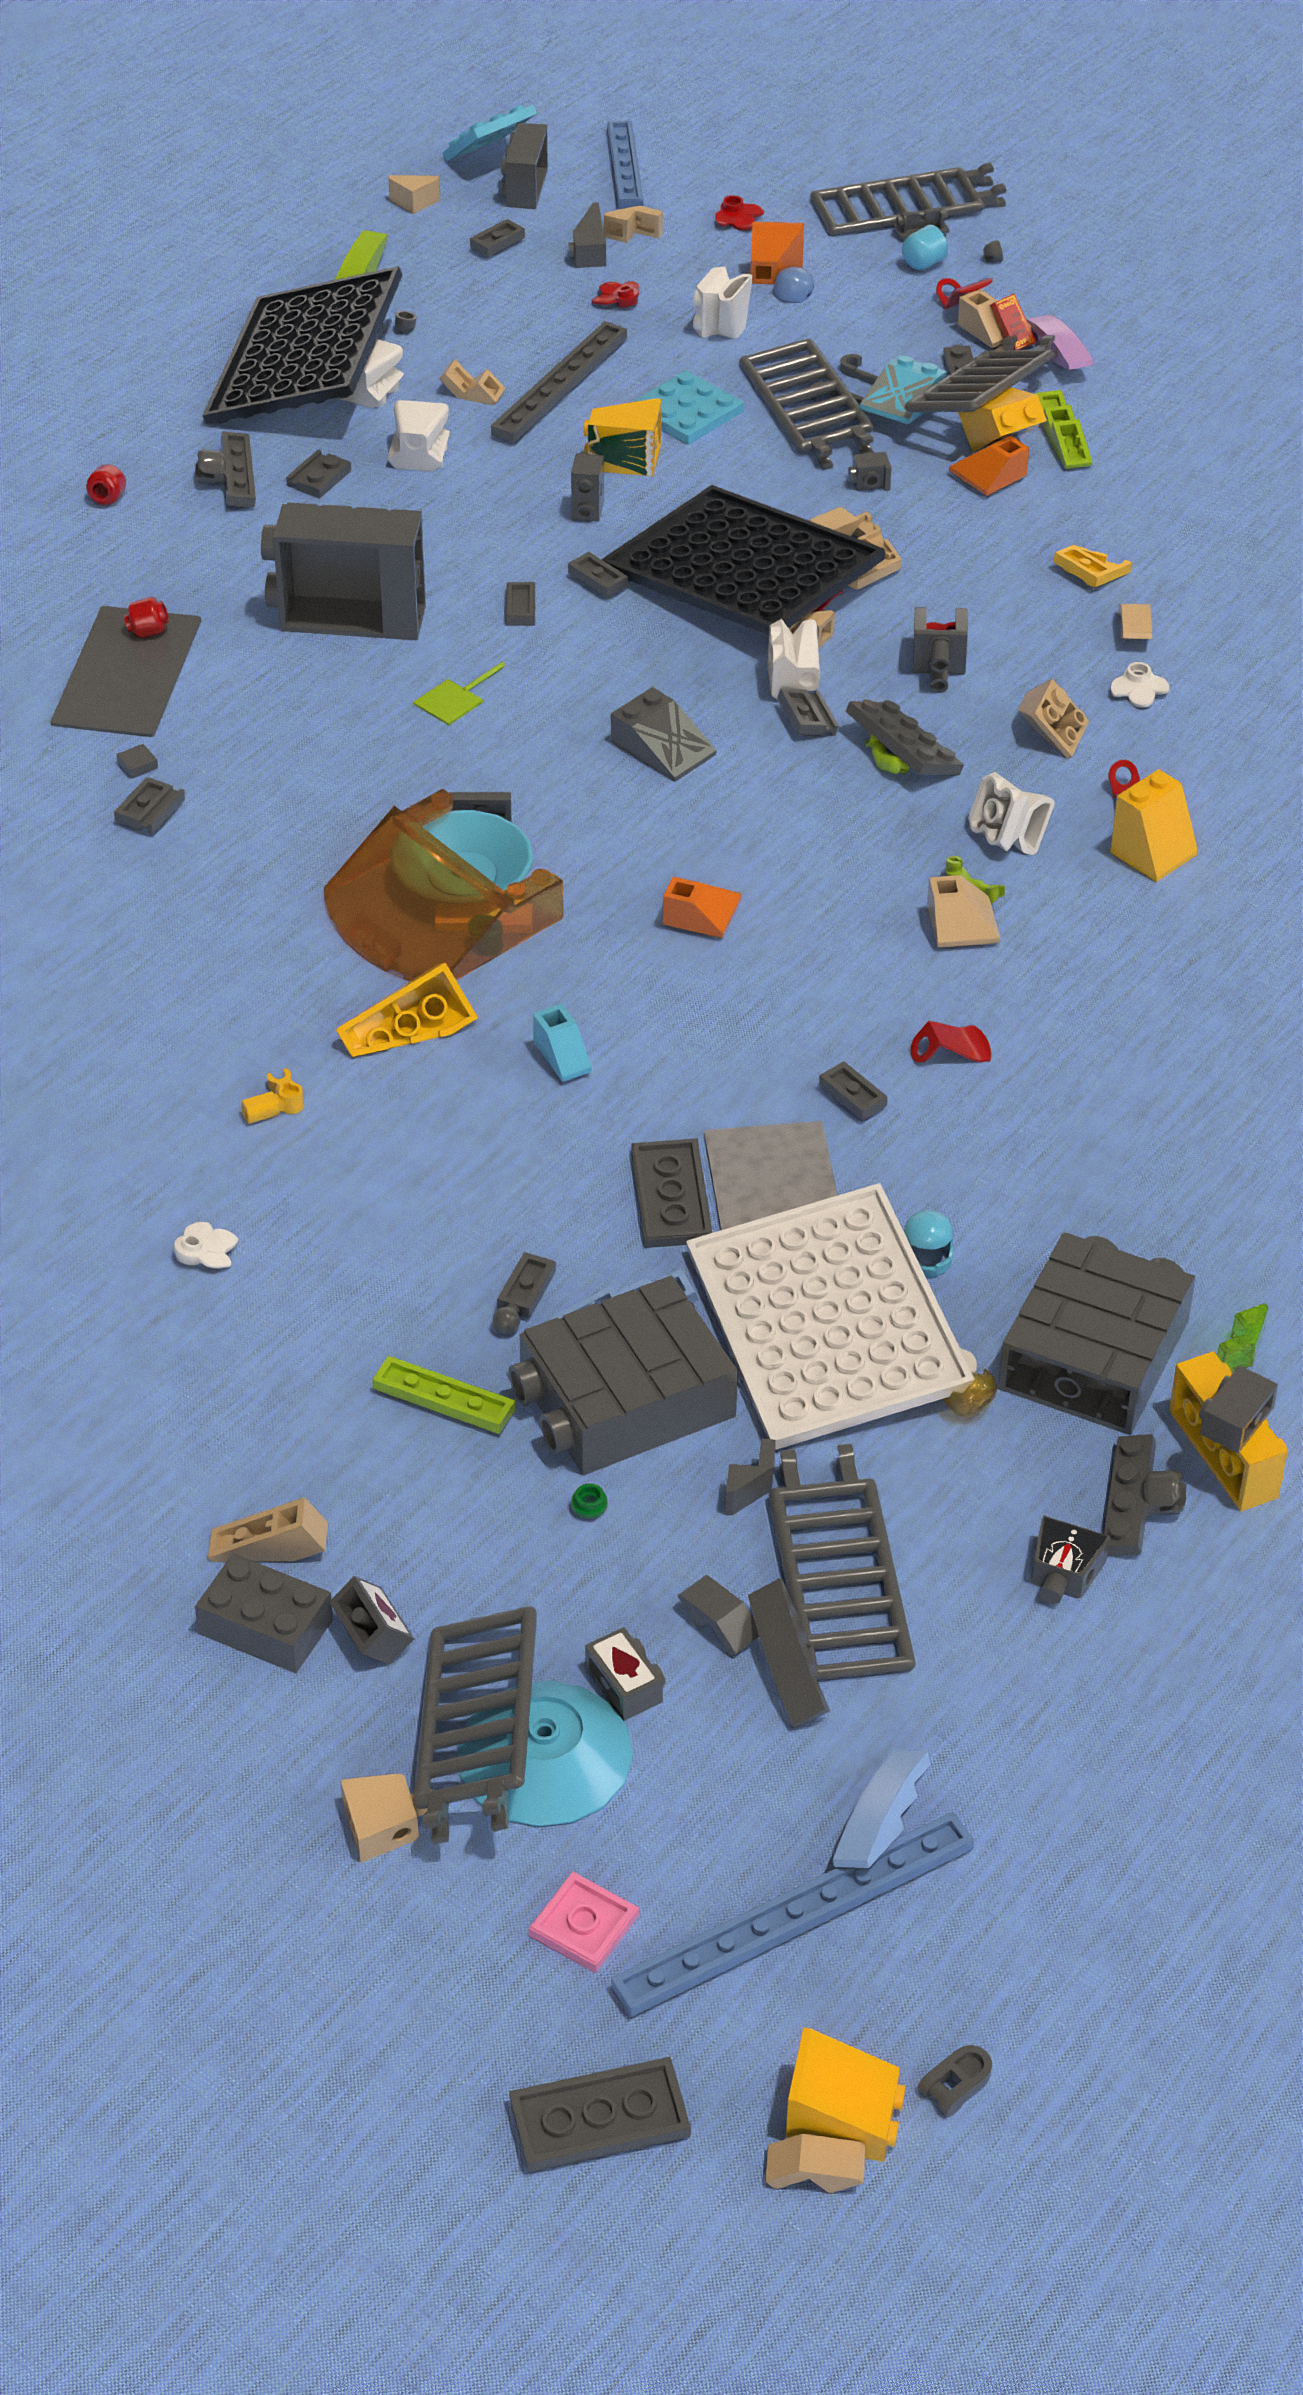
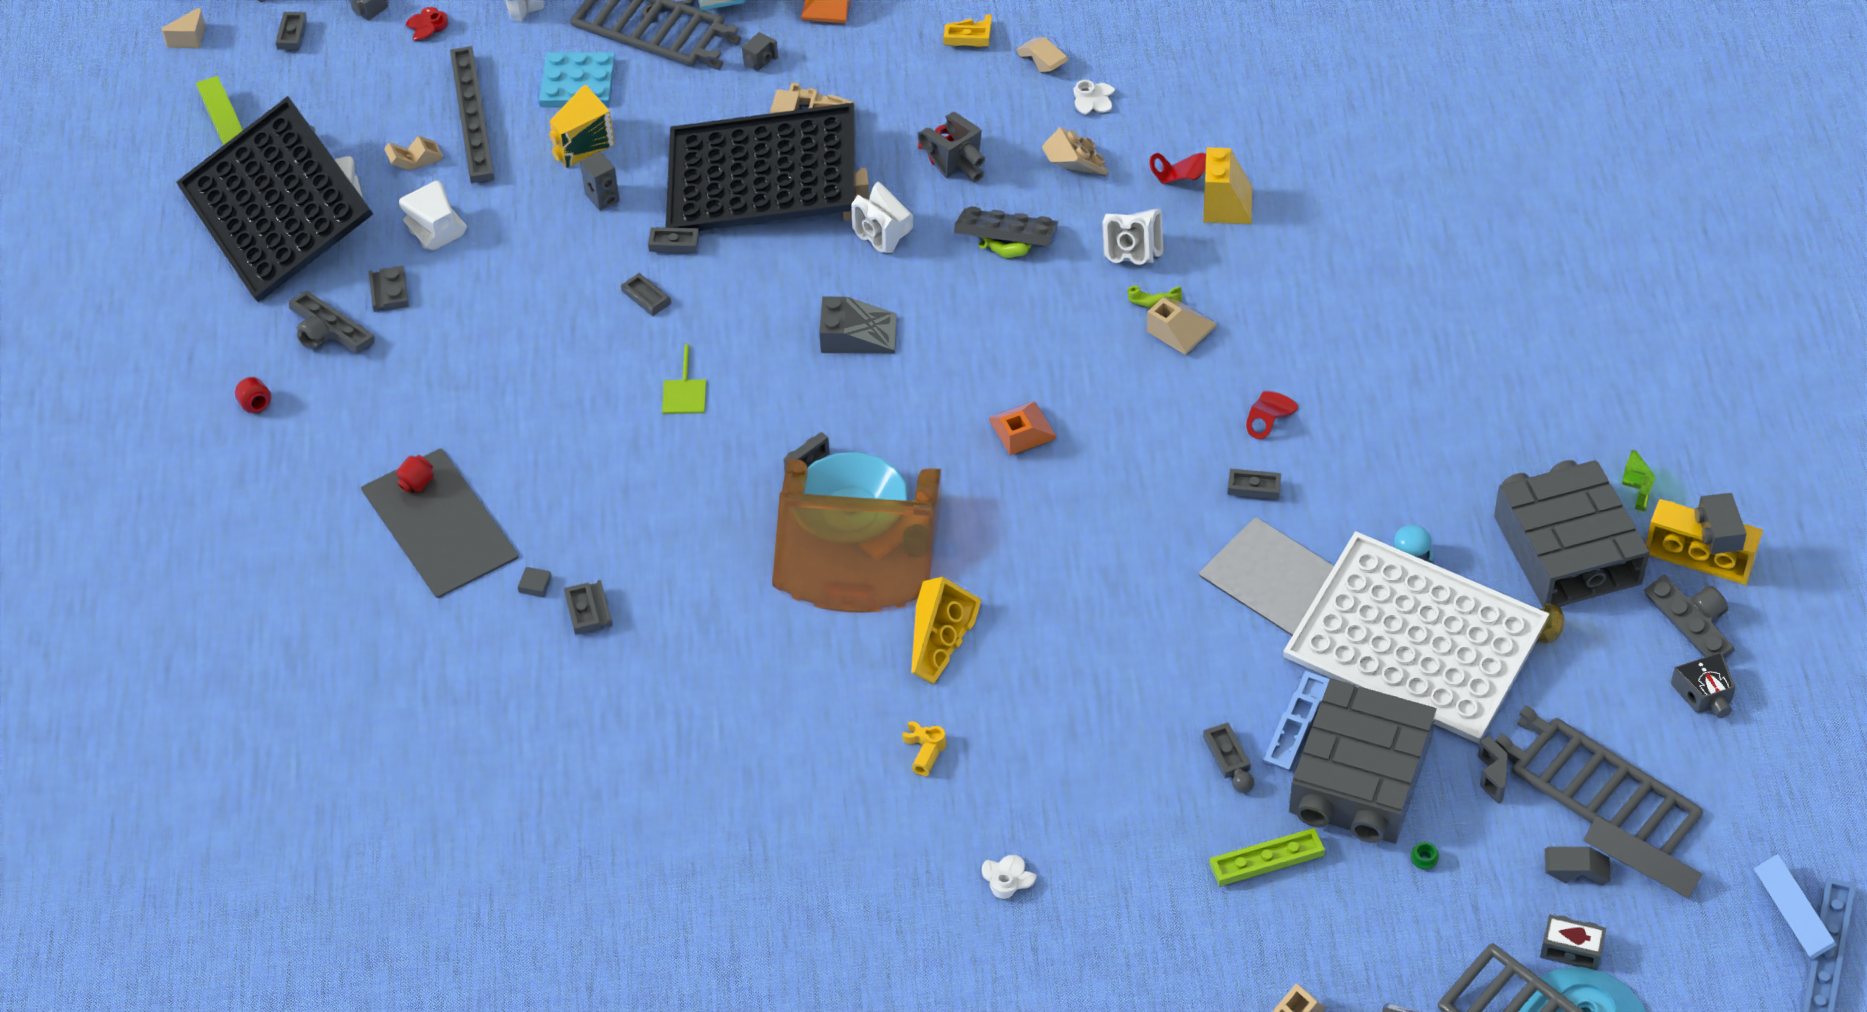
camera: 40 degrees left, 5 degrees up
(346, 570) = (536, 347): dark grey brick -> none
(560, 1042) = (1057, 578): medium azure slope -> none
(670, 1192) = (1230, 628): dark grey tile -> none
(807, 712) = (923, 249): dark grey plate -> none

